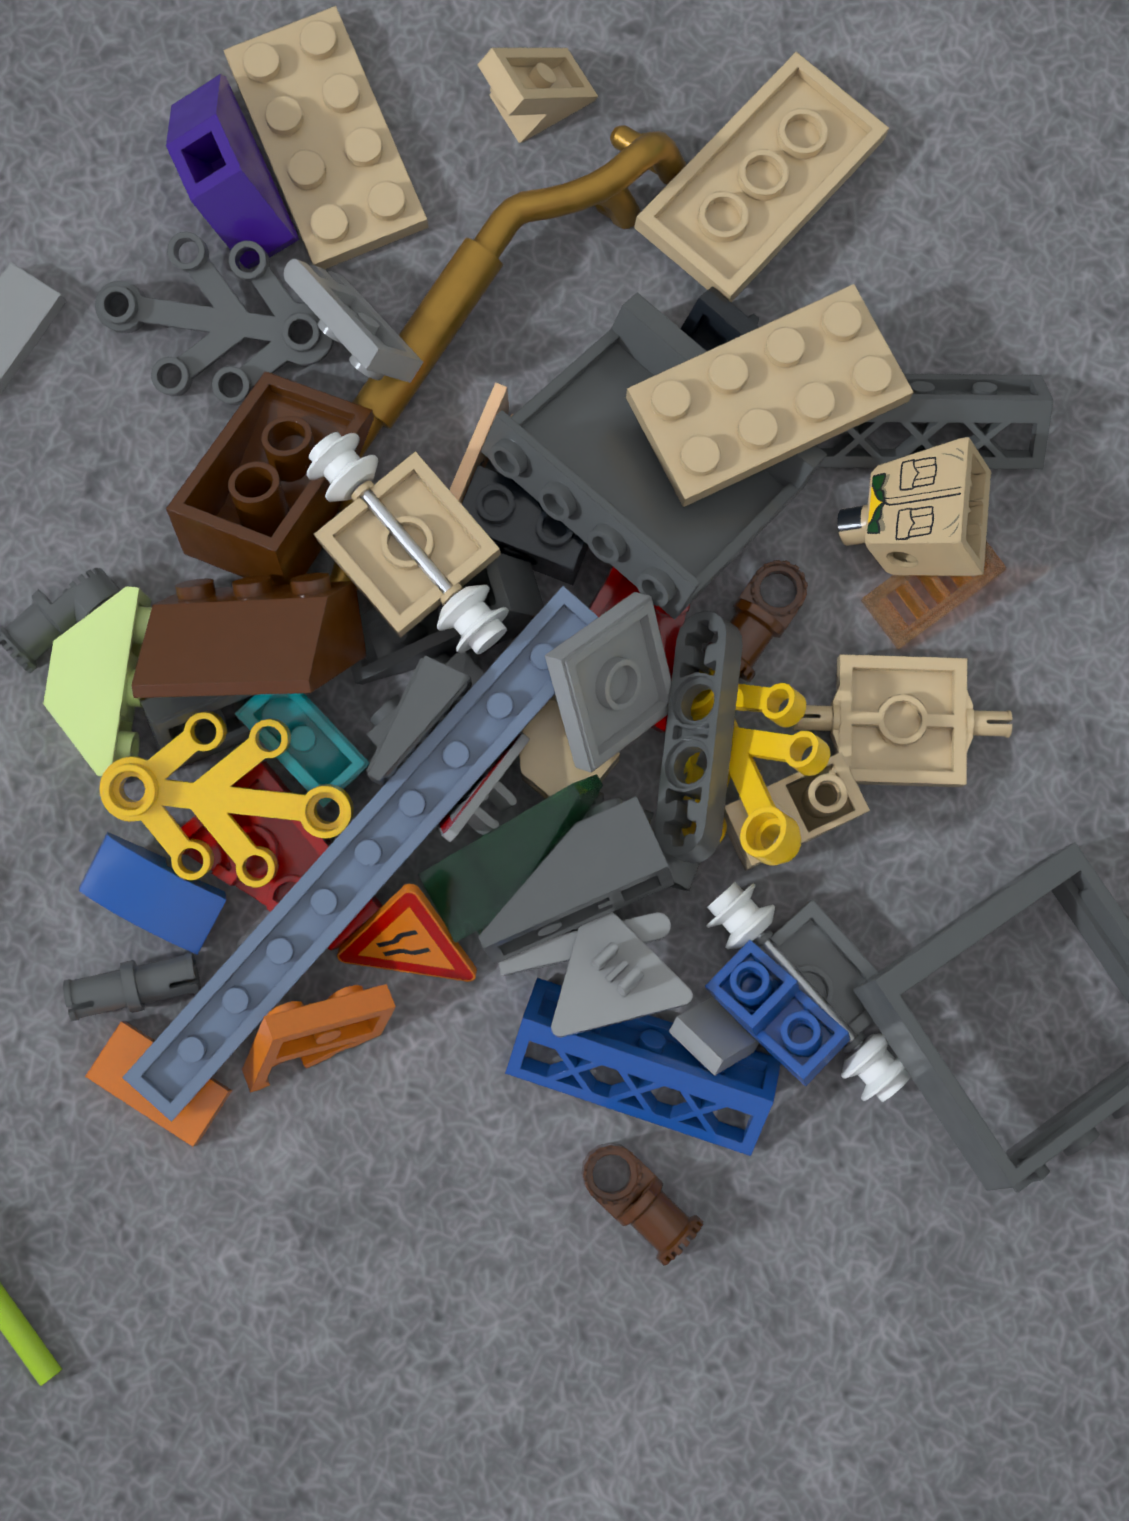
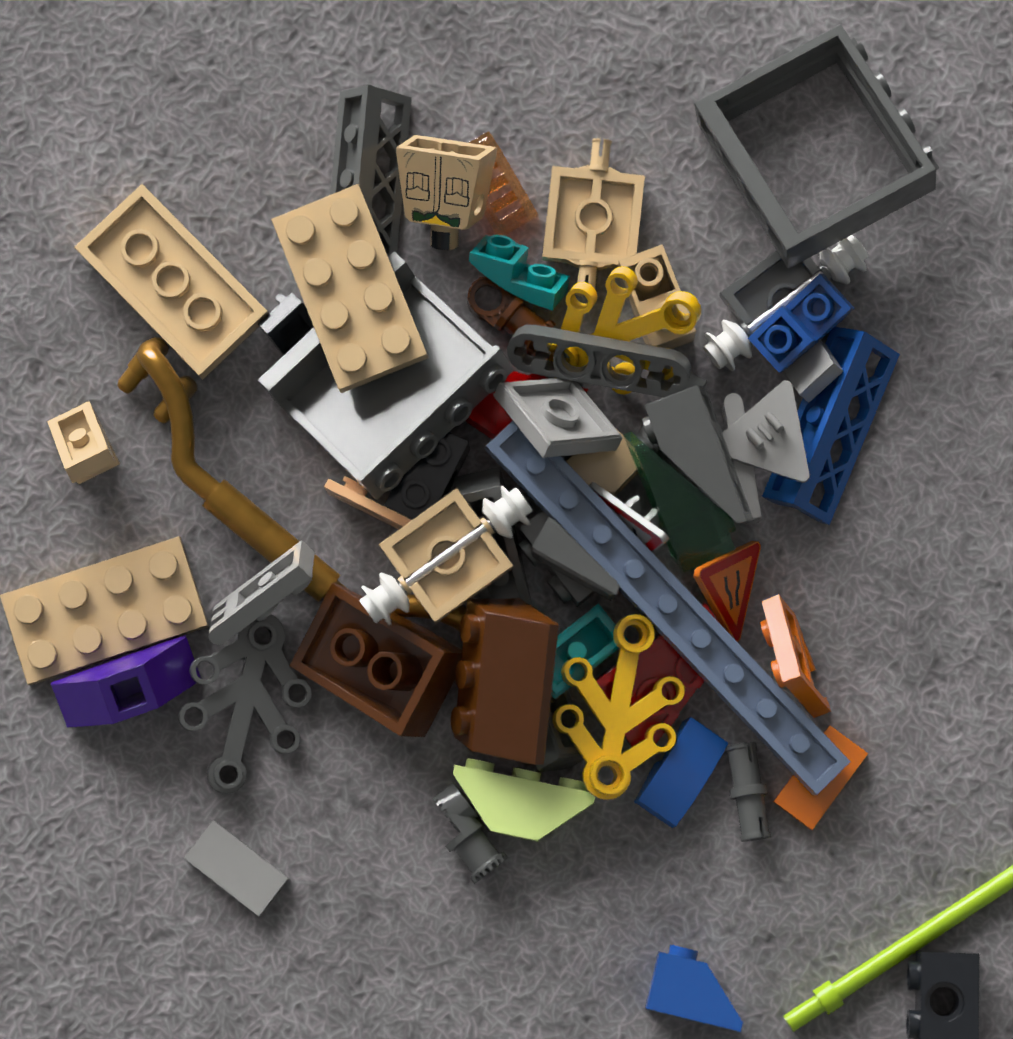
camera: 80 degrees left, 0 degrees up
(643, 1204) = (928, 432): reddish brown connector -> none
(820, 611) = (507, 266): none -> teal slope

